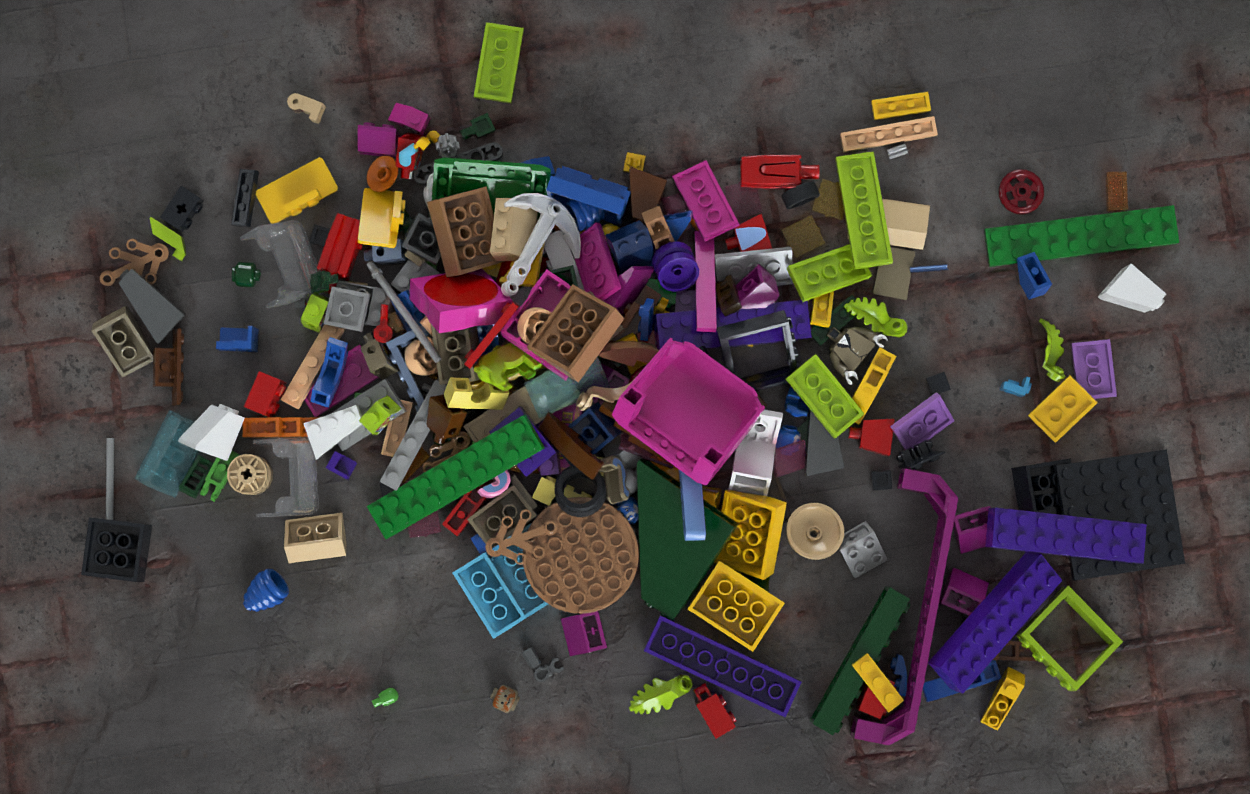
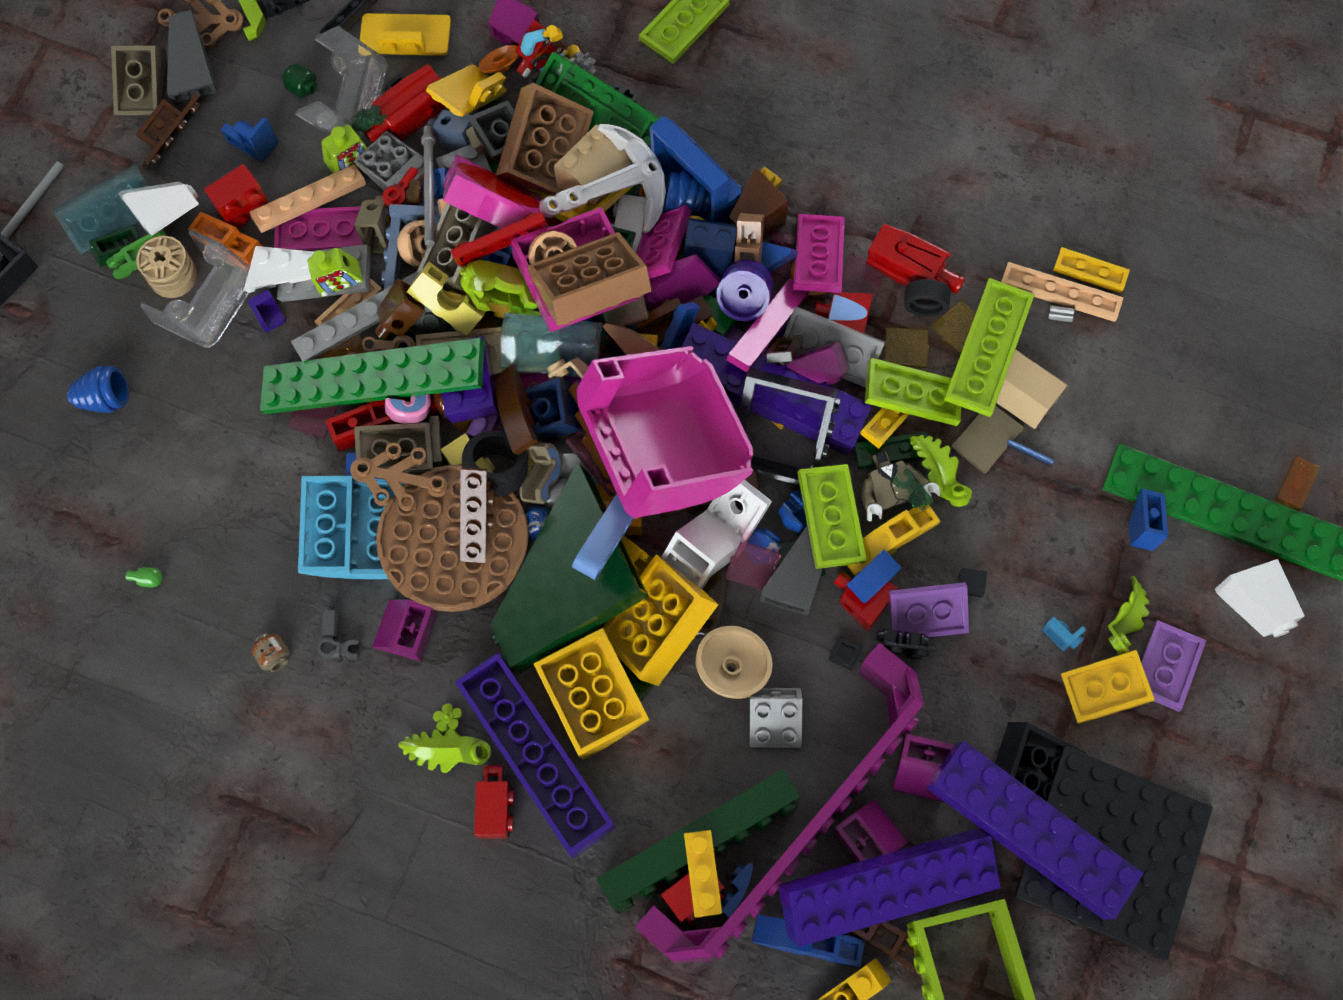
camera: 30 degrees right, 15 degrees down
(315, 537) = (188, 368): tan slope -> none
(331, 372) = (319, 213): blue arch -> none
(346, 309) = (373, 155): light grey plate -> none
(409, 118) = (567, 22): dark pink slope -> none
(480, 126) = (627, 67): dark green plate -> none
(594, 537) = (475, 514): none -> bracket
(648, 673) = (448, 718): none -> lime plant
(874, 349) = (917, 494): none -> clear green plate
(876, 422) = (874, 576): none -> blue slope
(1021, 175) = (1190, 410): dark red plate -> none

